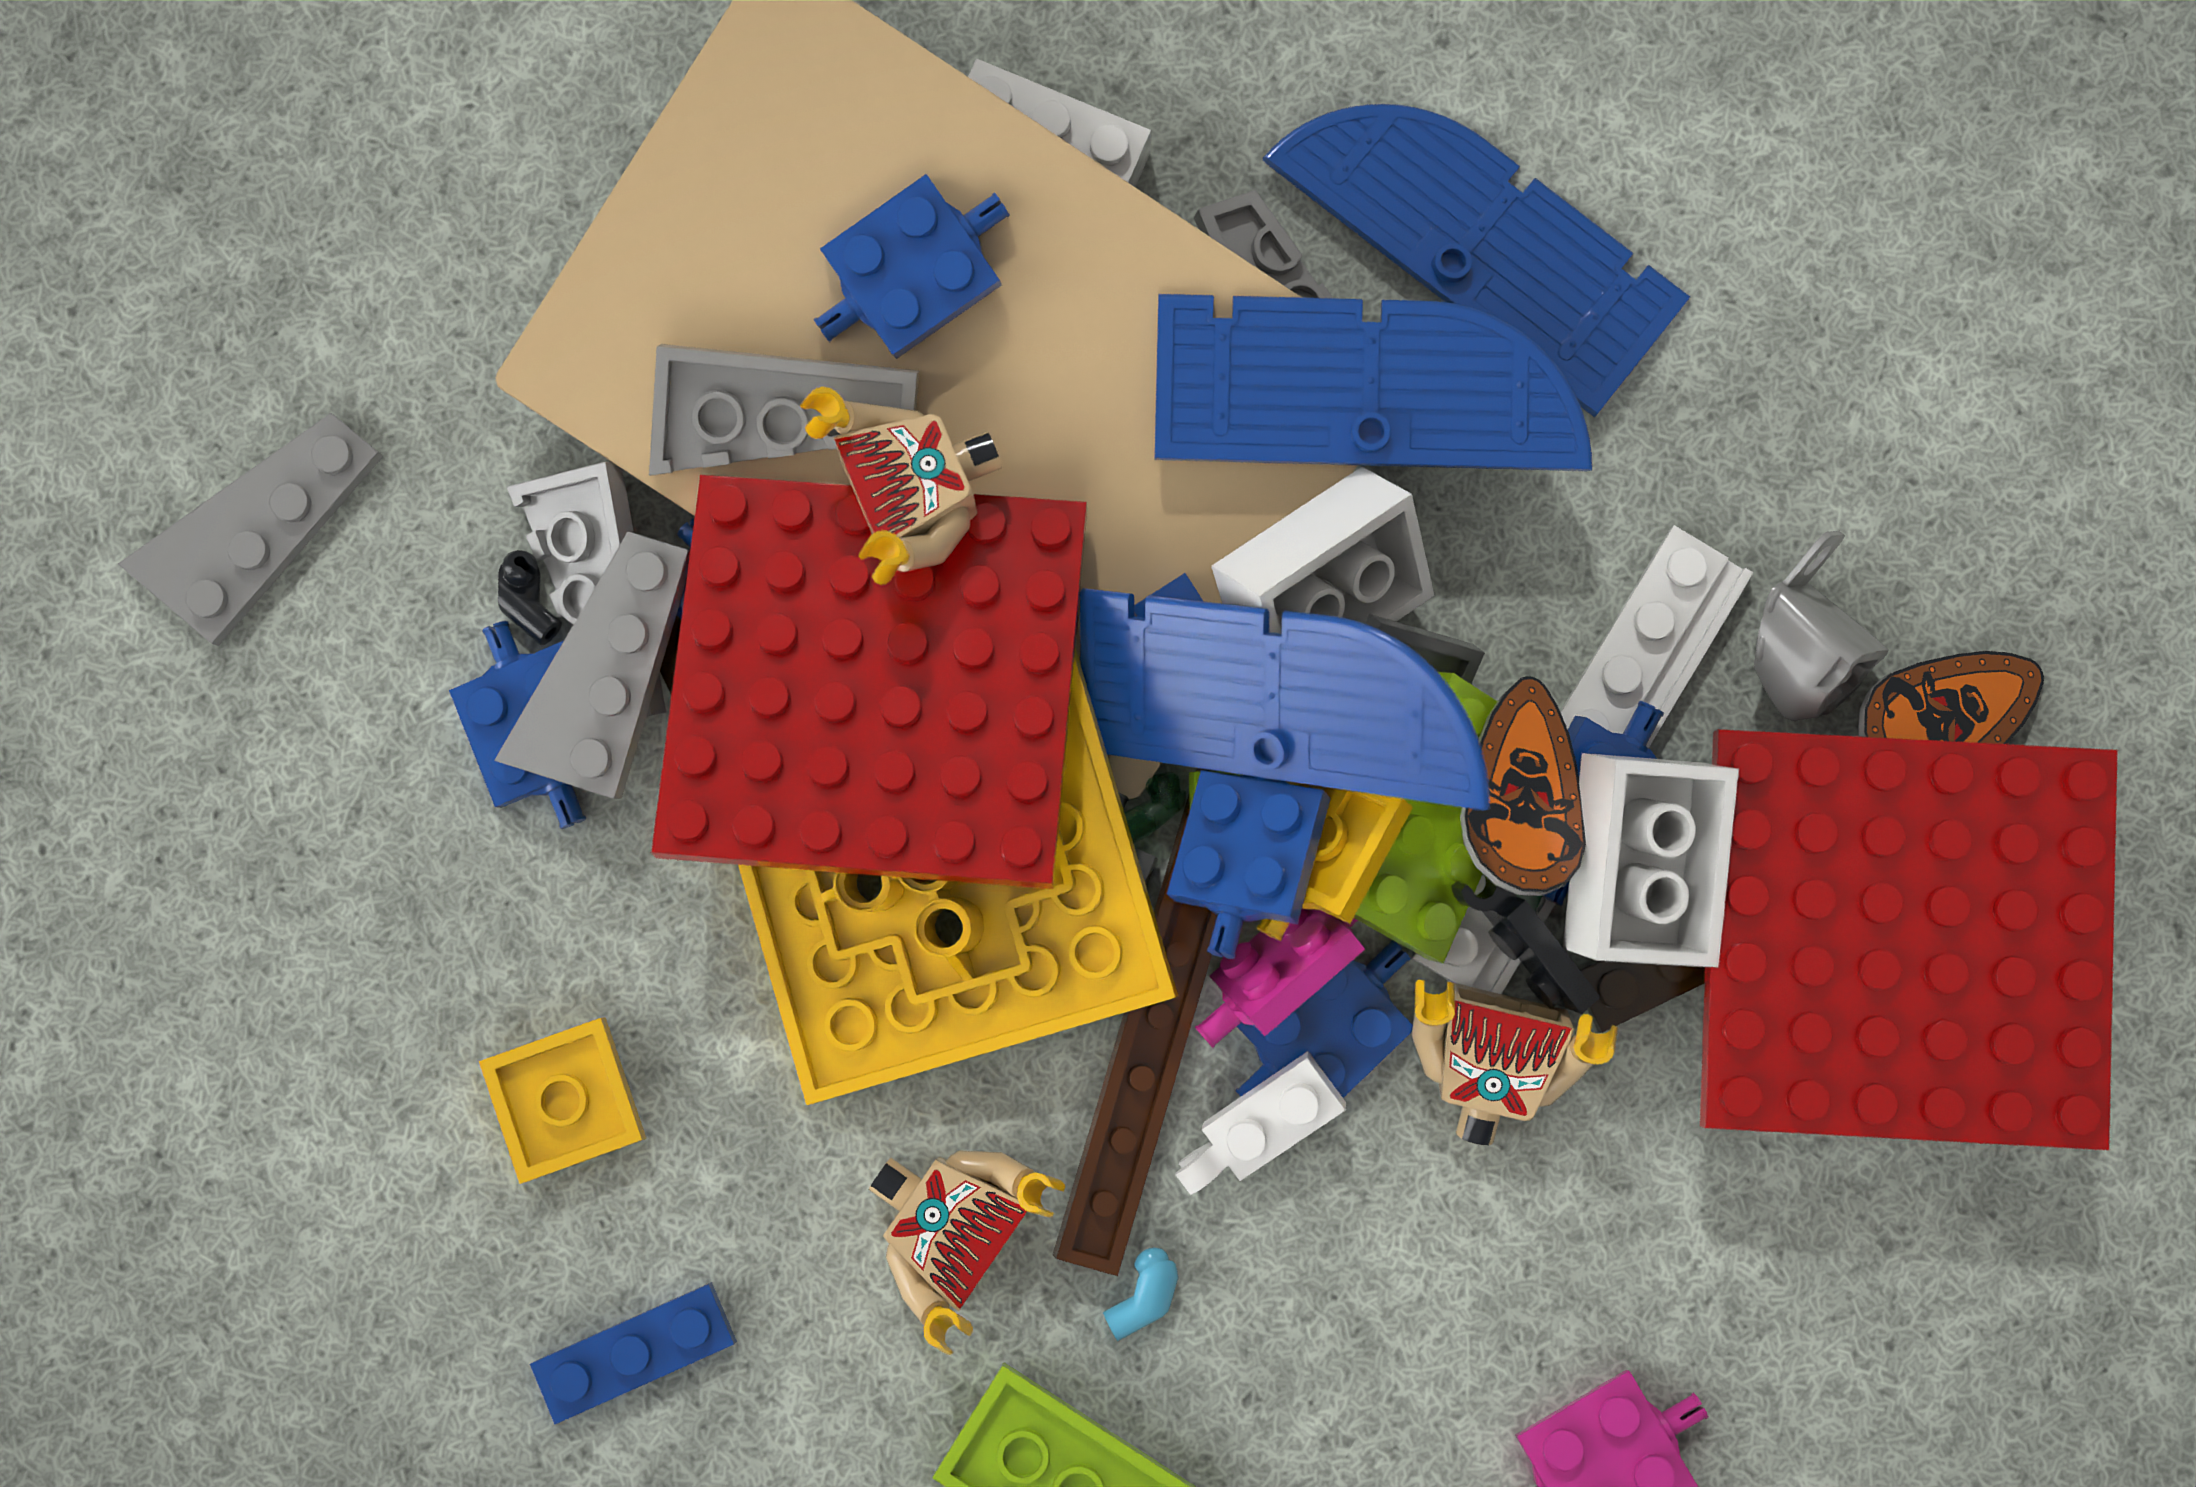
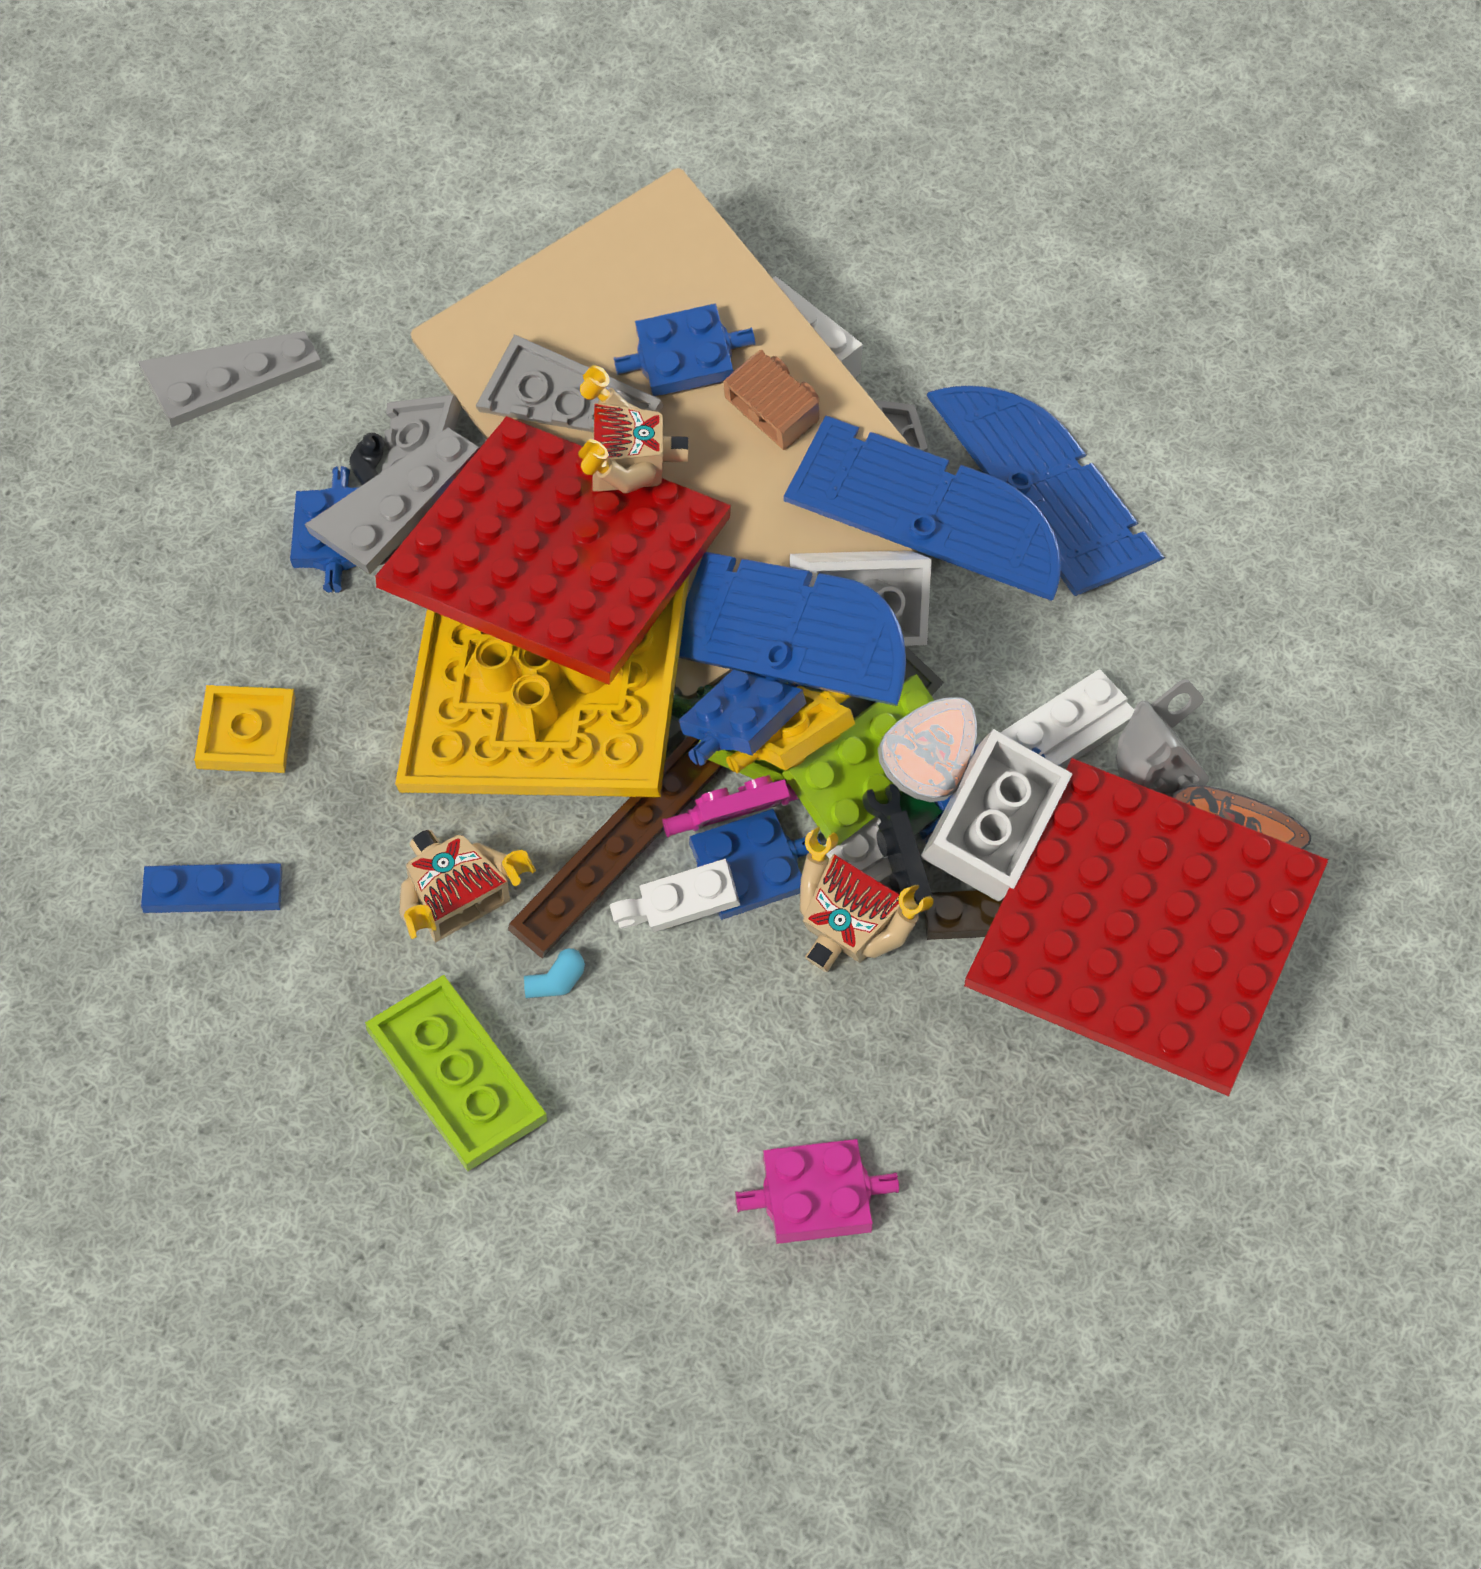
camera: 15 degrees right, 25 degrees down
(1075, 303) = (772, 398): none -> nougat brick

